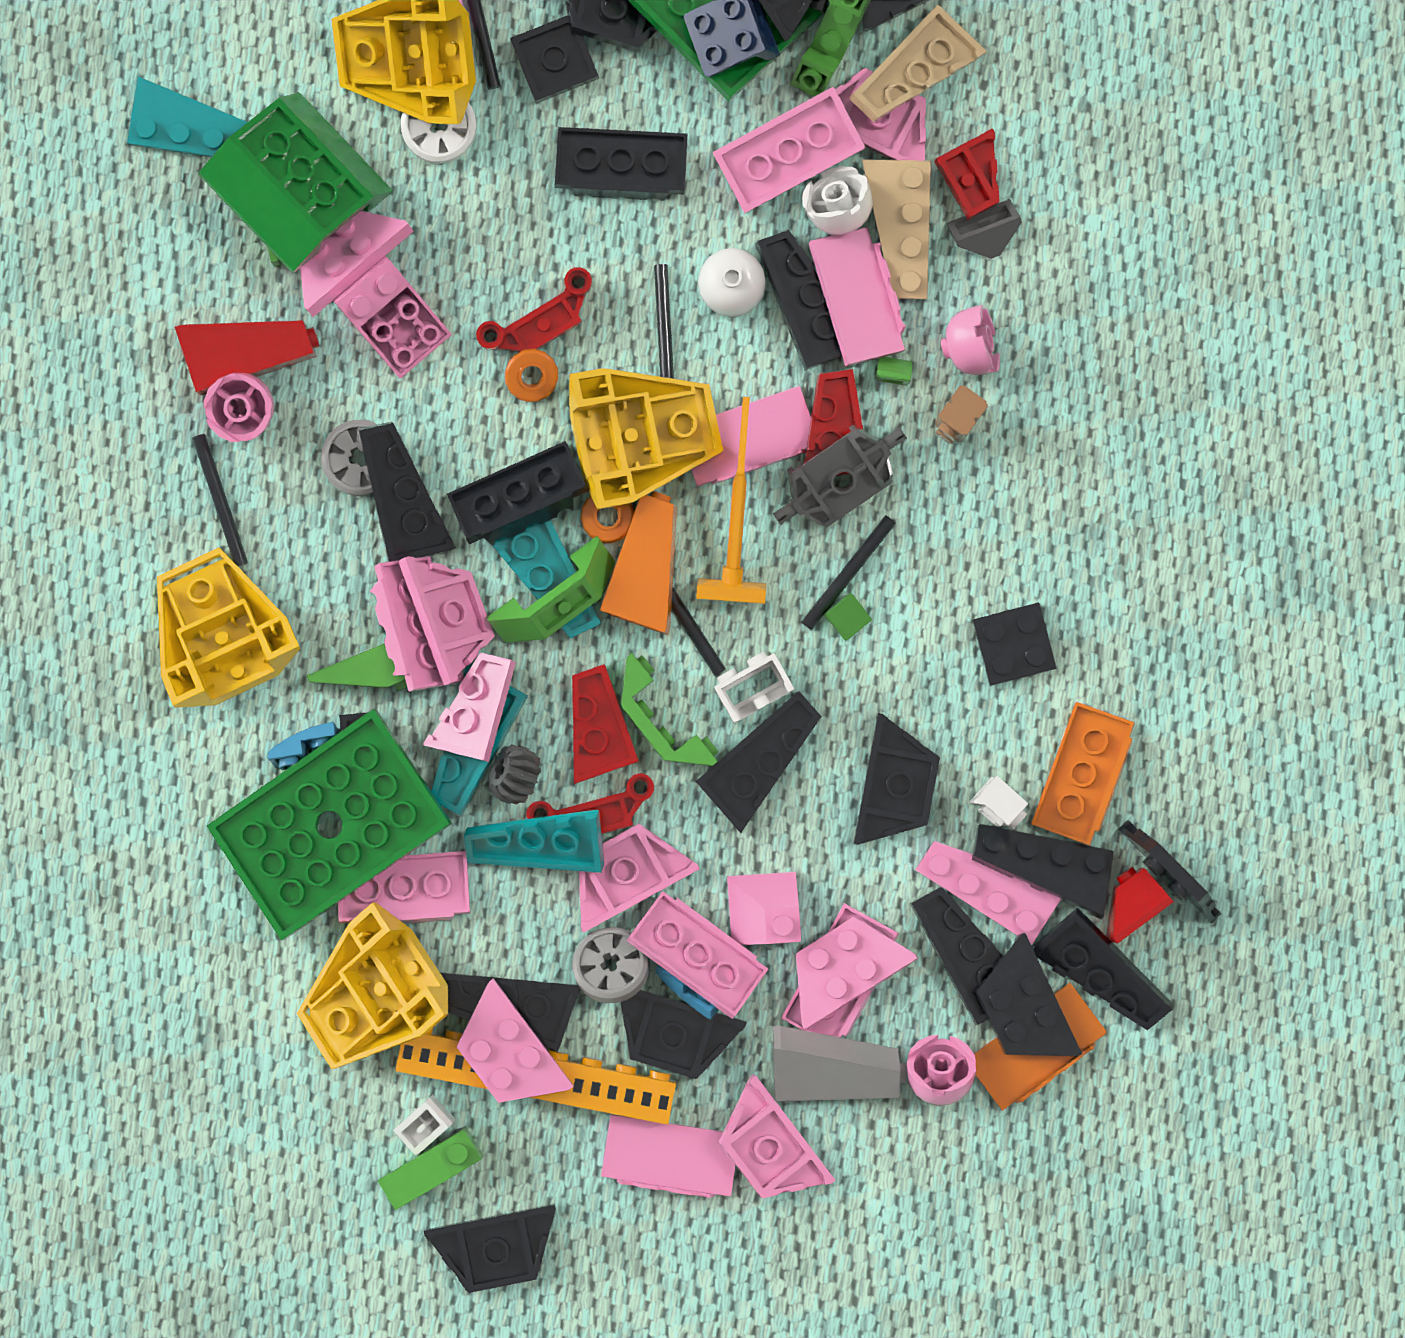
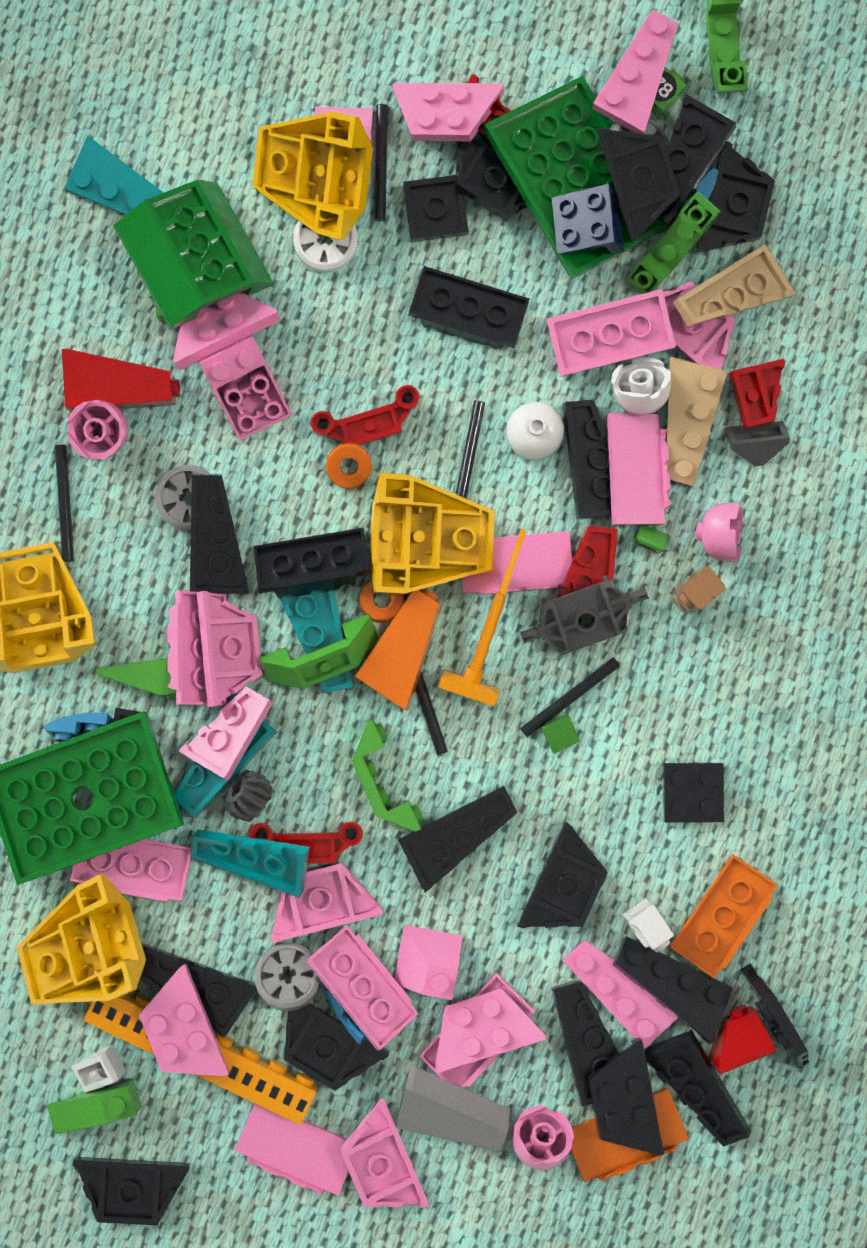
camera: 10 degrees right, 0 degrees up
(599, 727) = (329, 773): red wing -> none
(760, 699) = (470, 784): white window -> none

